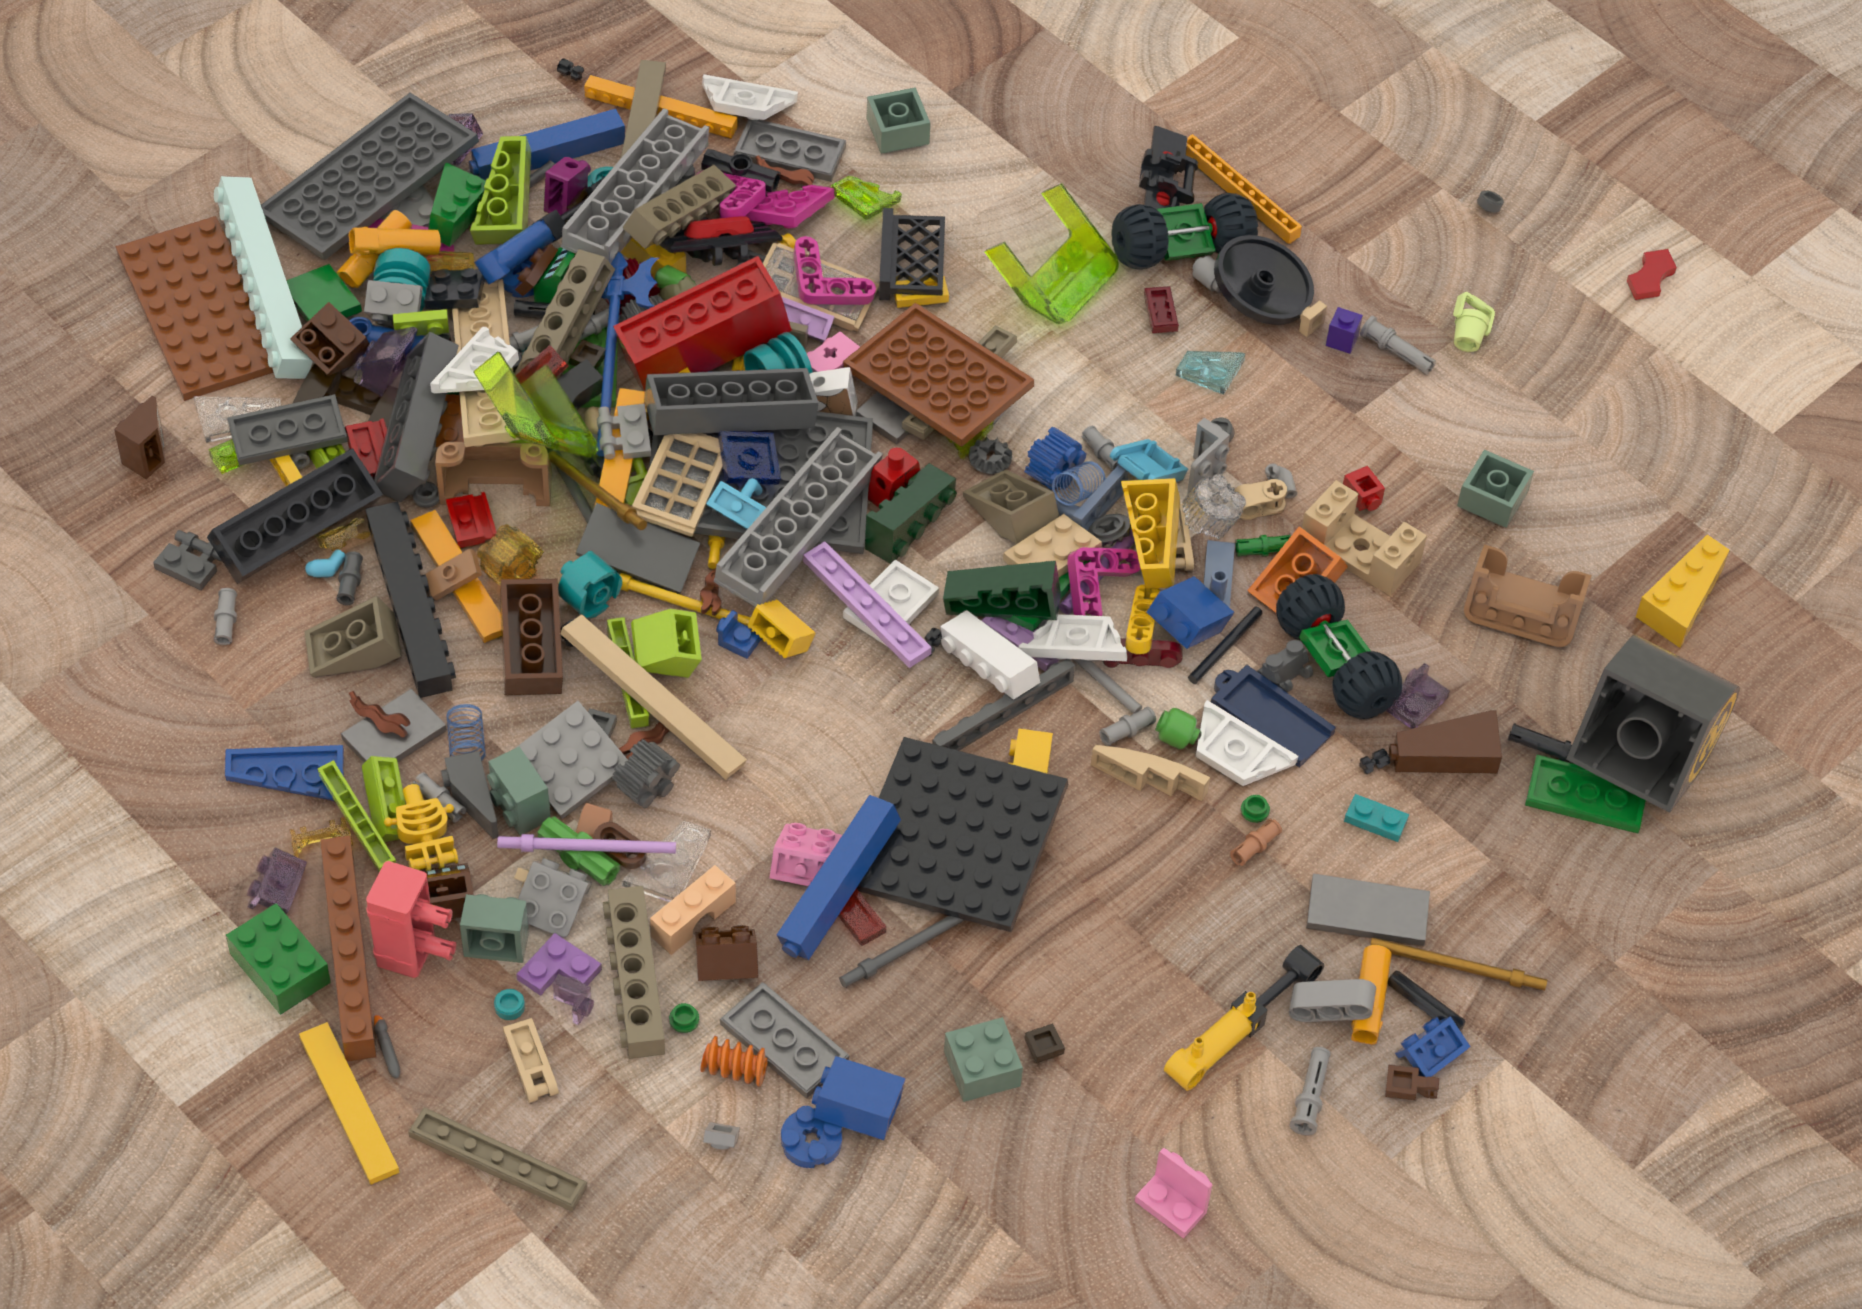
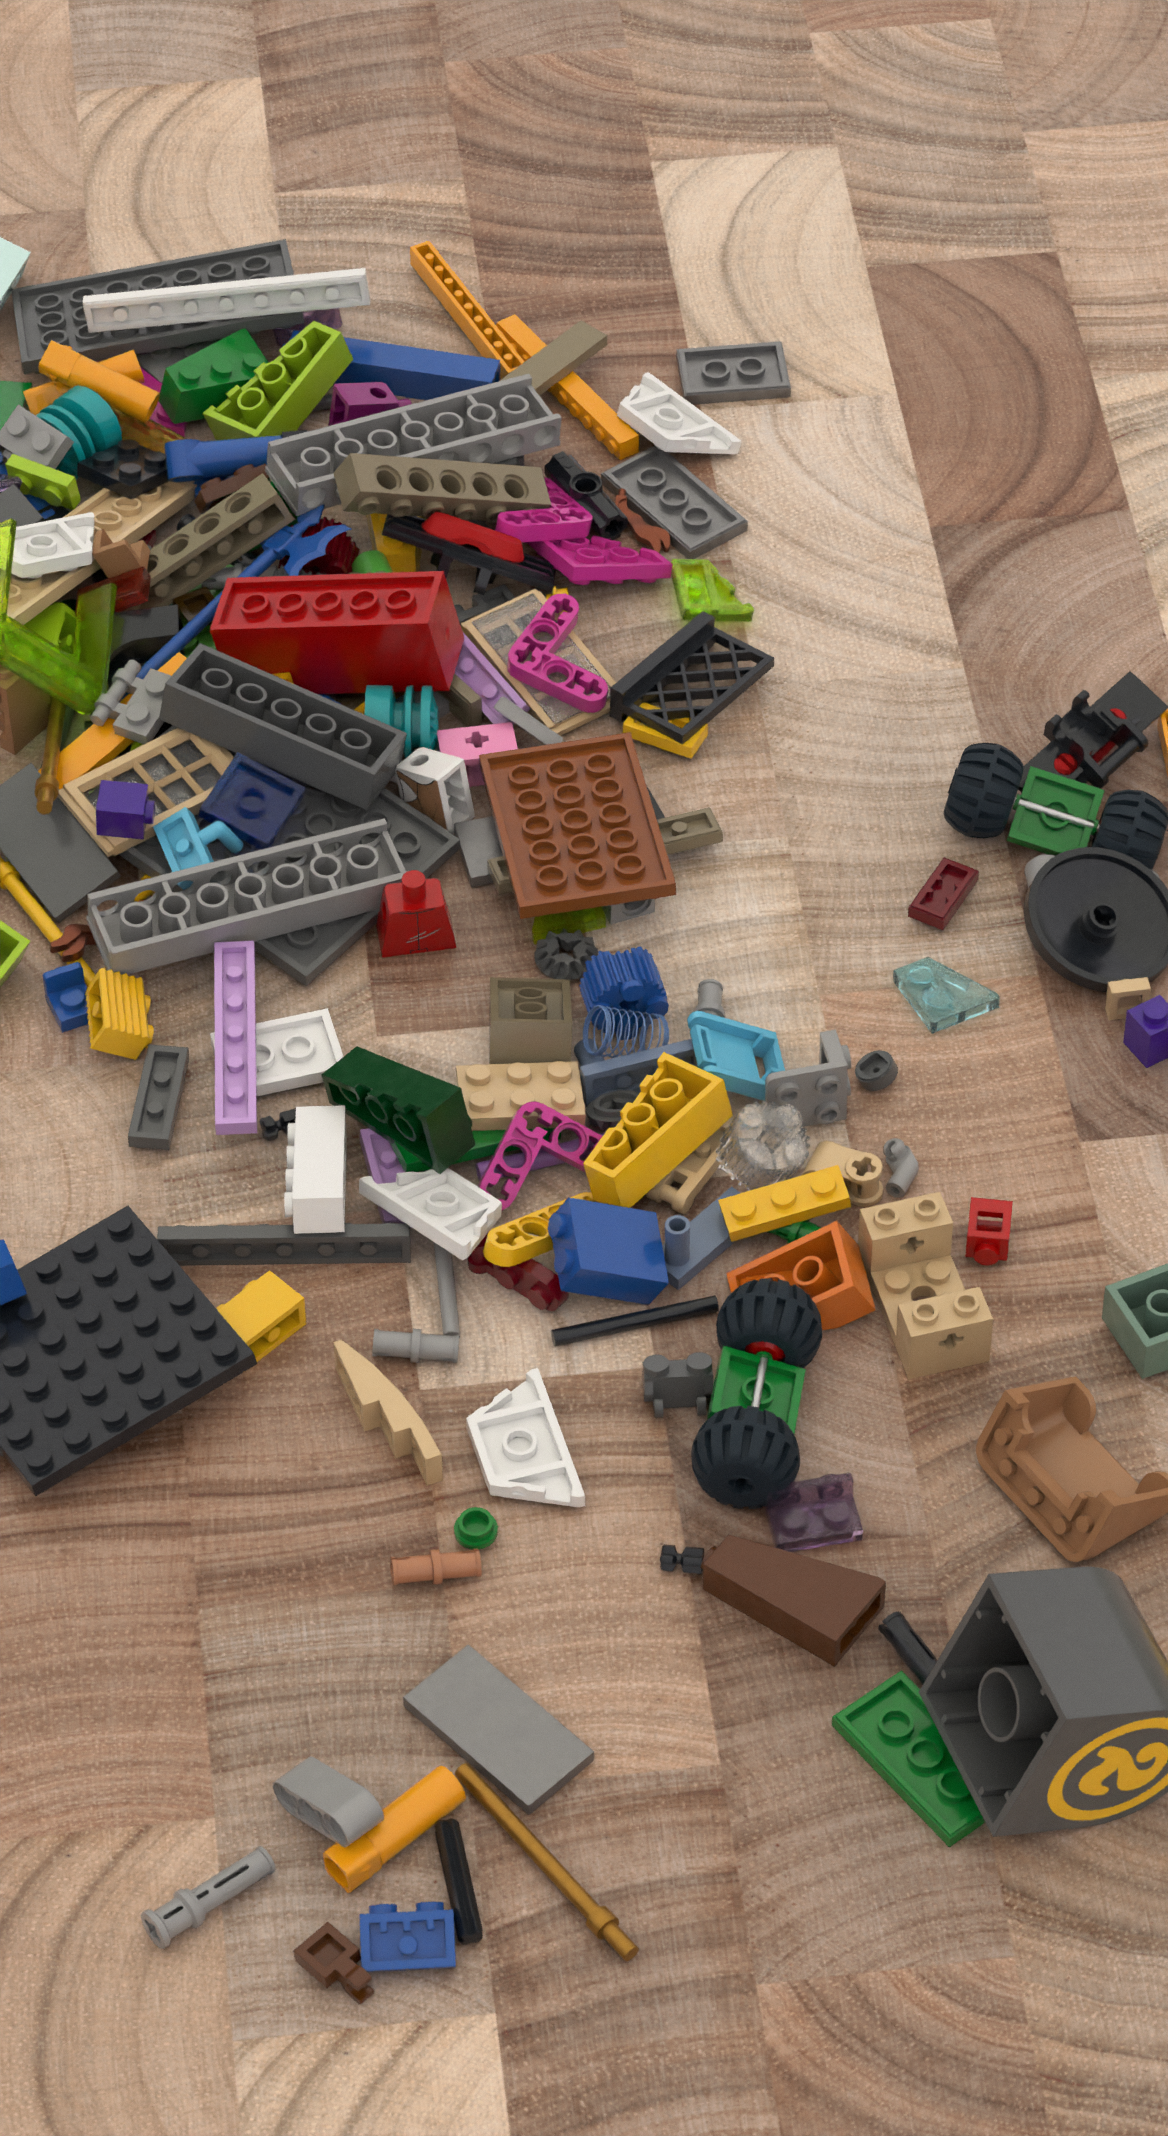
camera: 40 degrees right, 5 degrees down
(426, 150) = (226, 300): none -> white tile
(528, 346) = (119, 556): none -> medium nougat panel
(555, 86) = (463, 307): none -> light orange piece
(566, 68) = (504, 299): black piece -> none
(687, 501) = (123, 809): none -> dark purple brick
(748, 51) = (733, 373): none -> flat silver tile
(847, 665) = (158, 1097): none -> dark grey plate
(849, 328) = (527, 722): none -> light grey tile
(898, 120) = (824, 524): sand green brick -> none
(908, 513) = (394, 964): dark green wedge -> none
(1070, 273) = (860, 798): clear neon green windscreen -> none
(1177, 728) = (469, 1379): bright green head -> none
(1244, 1018) = (94, 1770): yellow piece -> none
(1252, 533) = (784, 1203): none -> yellow plate
(1271, 711) = (610, 1432): dark blue piece -> none
(1376, 818) = (619, 1628): teal plate -> none

